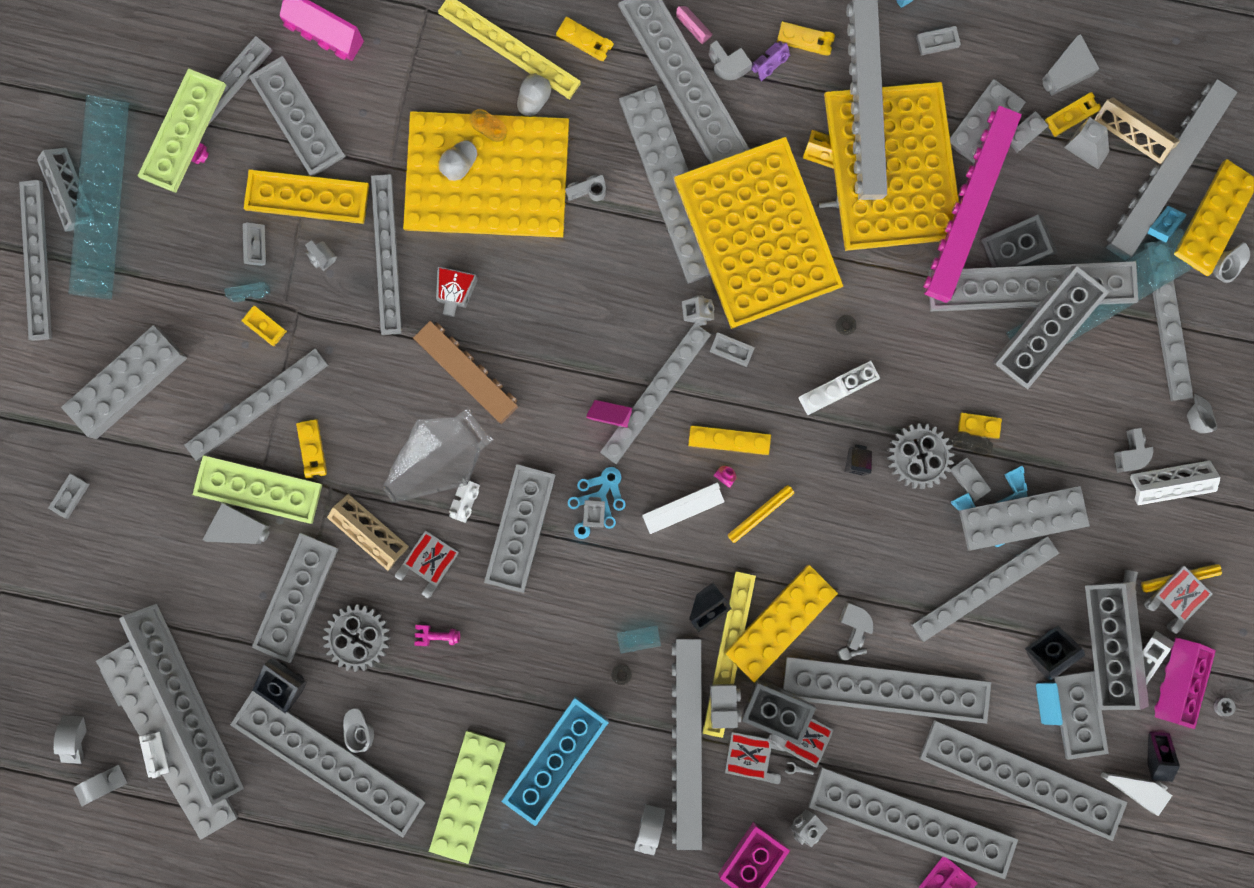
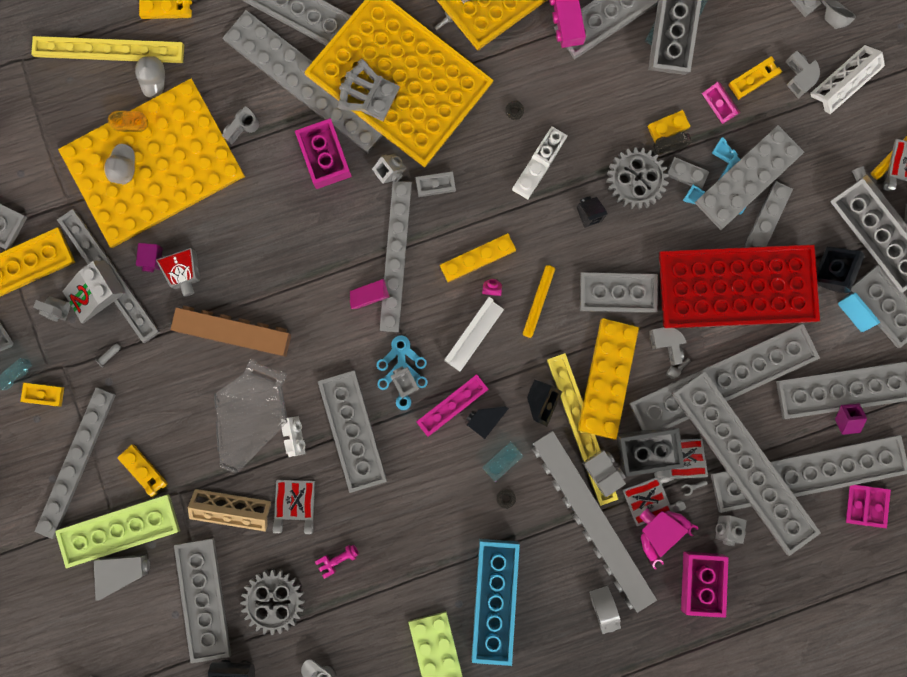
camera: 30 degrees left, 0 degrees up
(343, 325) = (108, 354): none -> light grey piece
(365, 259) = (93, 290): none -> light grey slope
(432, 259) = (147, 256): none -> magenta brick
(624, 560) = (452, 405): none -> dark pink plate
(646, 260) = (323, 153): none -> dark pink brick
(646, 592) = (485, 420): none -> black slope
(728, 241) = (379, 98): none -> light grey plate
(744, 793) = (662, 533): none -> dark pink torso
(838, 550) = (618, 292): none -> light grey plate
(859, 777) = (746, 463): none -> light grey plate
(952, 612) = (739, 286): none -> red plate
(980, 796) = (850, 419): none -> magenta brick
(1042, 433) = (720, 102): none -> dark pink slope
(1087, 429) = (754, 78): none -> yellow plate

